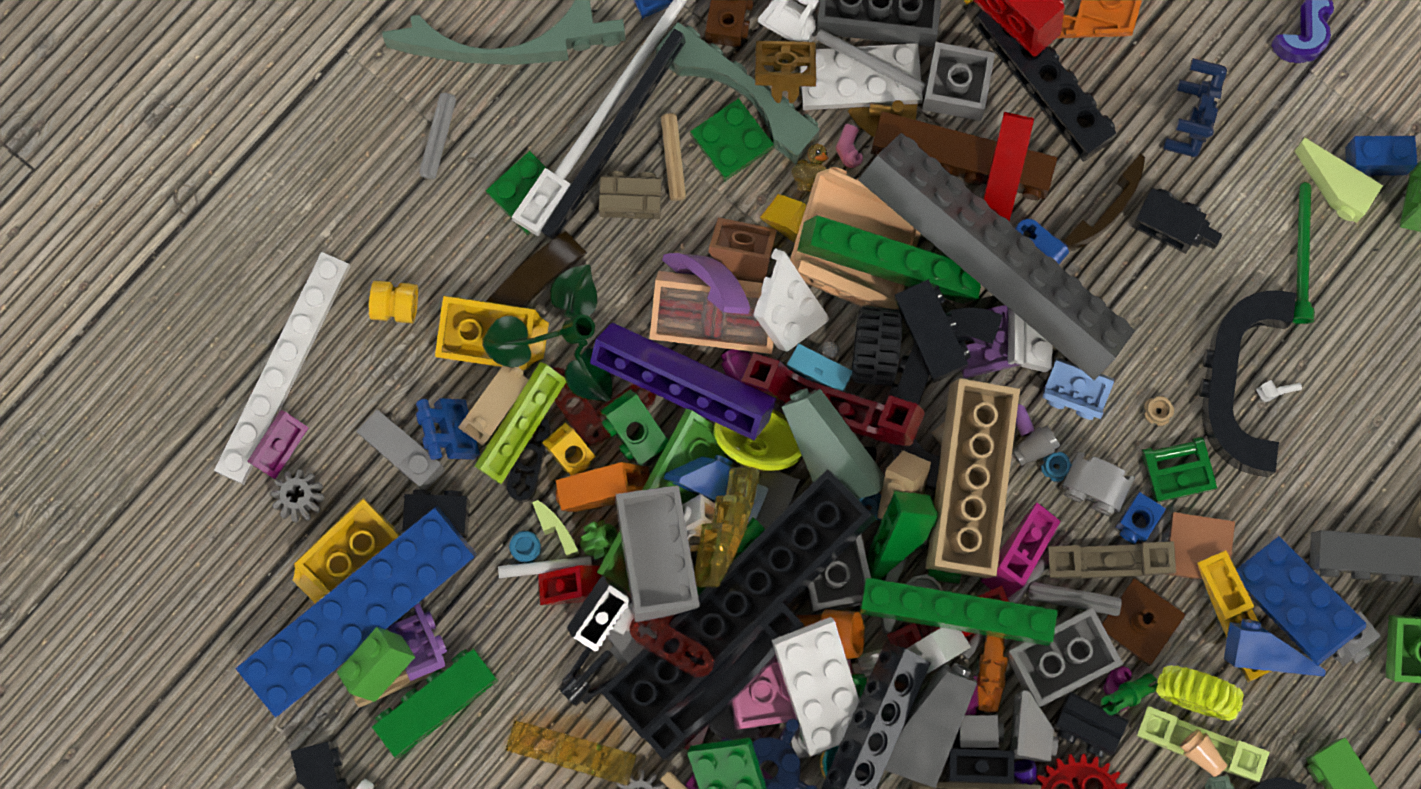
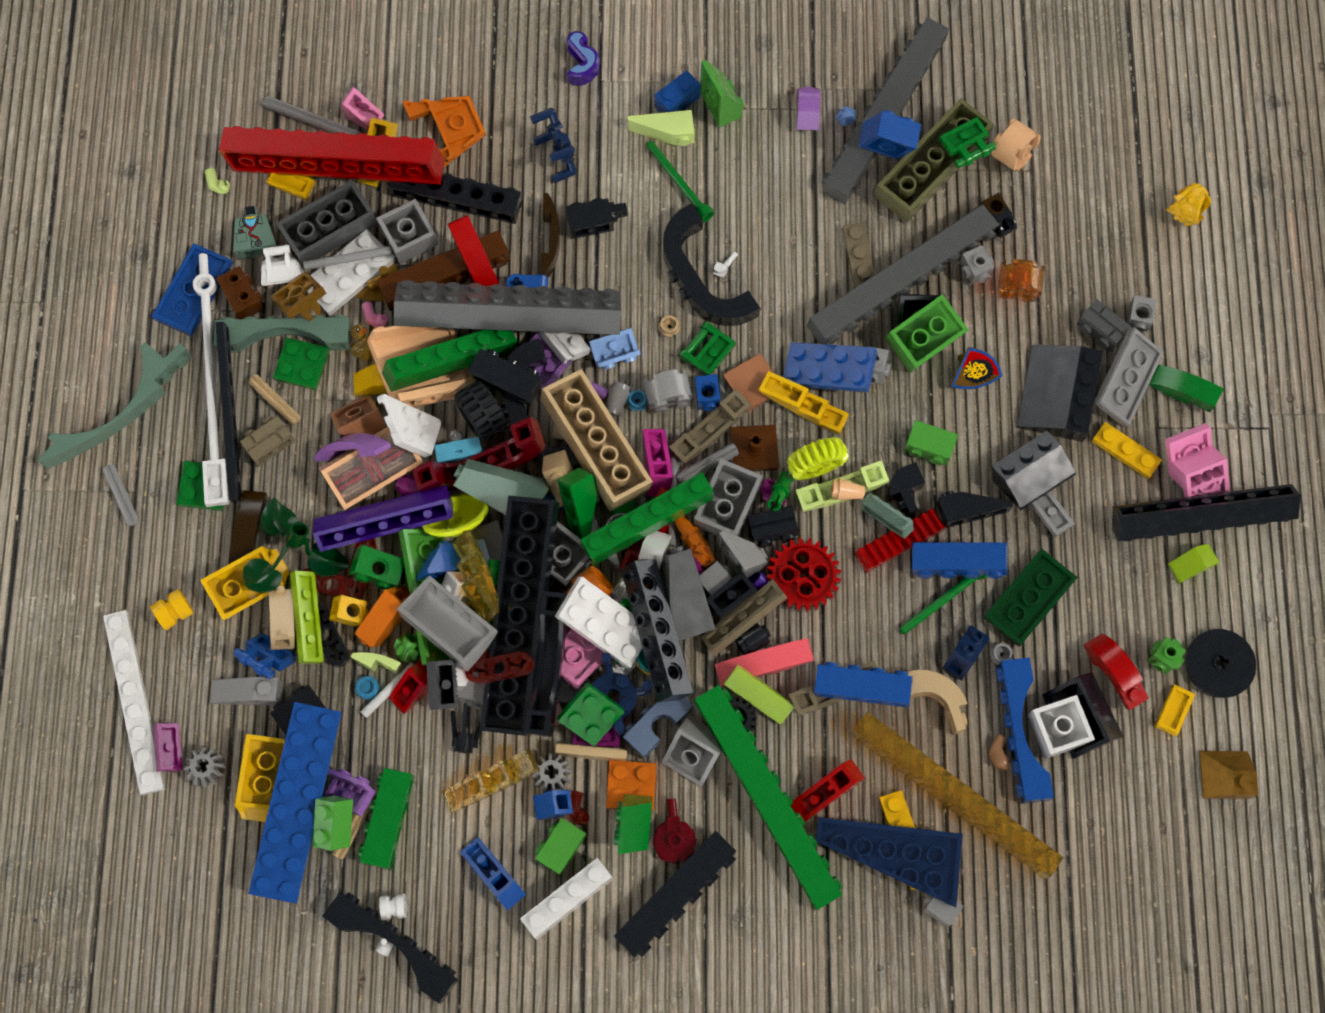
camera: 40 degrees left, 5 degrees down
(1256, 648) = (833, 406): blue slope -> none

